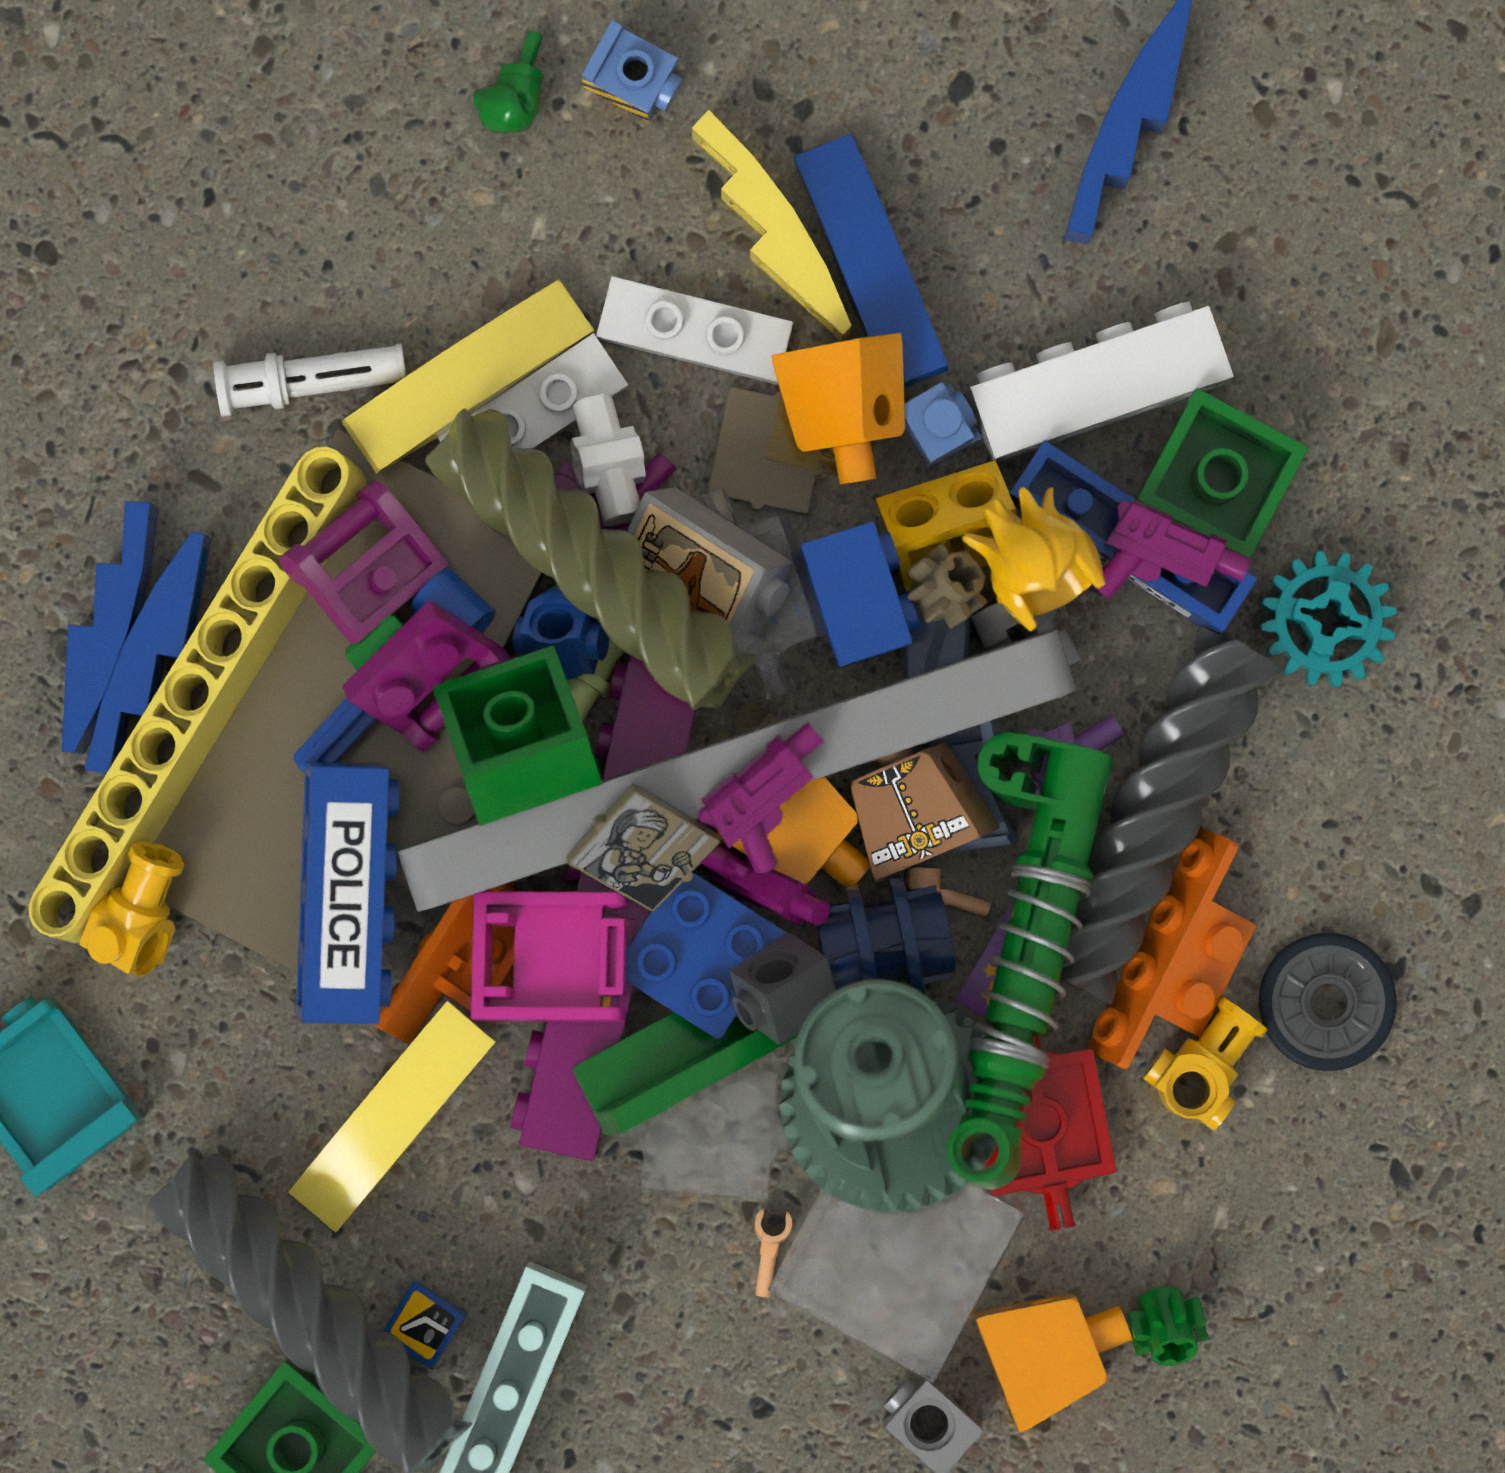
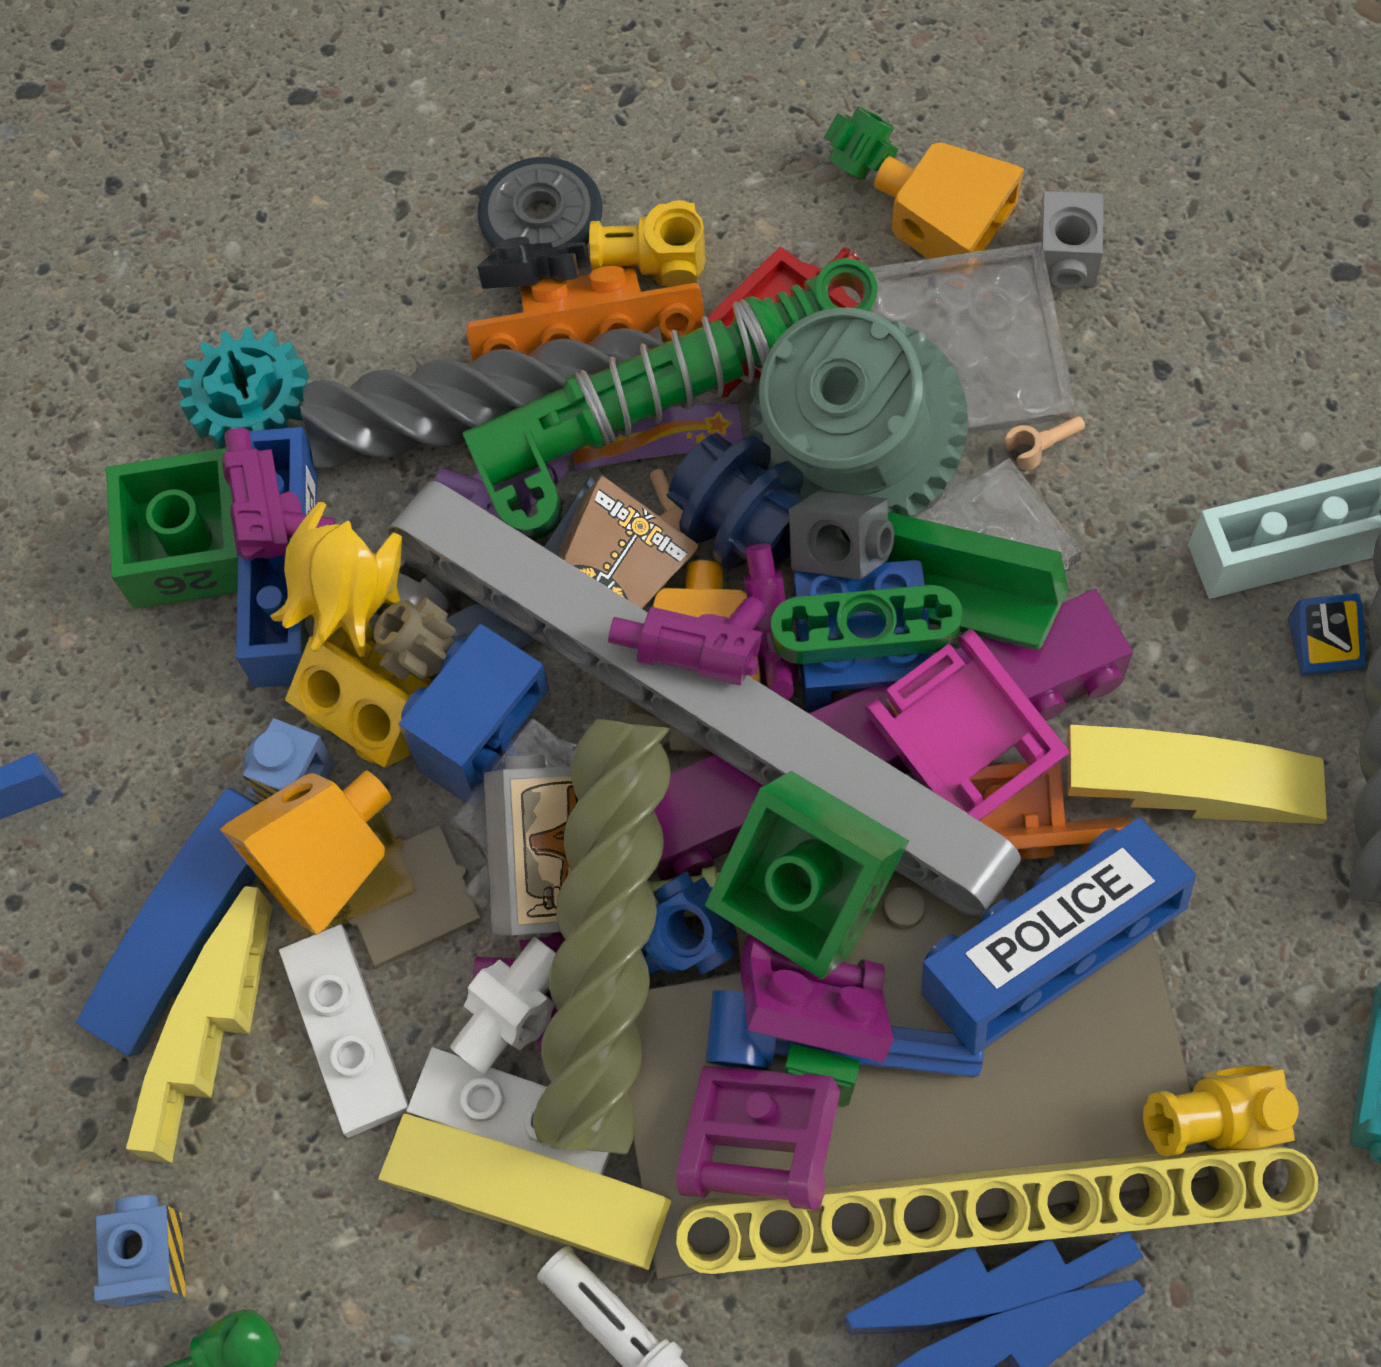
camera: 120 degrees left, 20 degrees down
(643, 848) = (817, 707): piece -> none
(675, 993) = (883, 602): none -> green beam
(1100, 383) = (162, 670): white brick -> none
(1268, 944) = (525, 264): none -> black plate

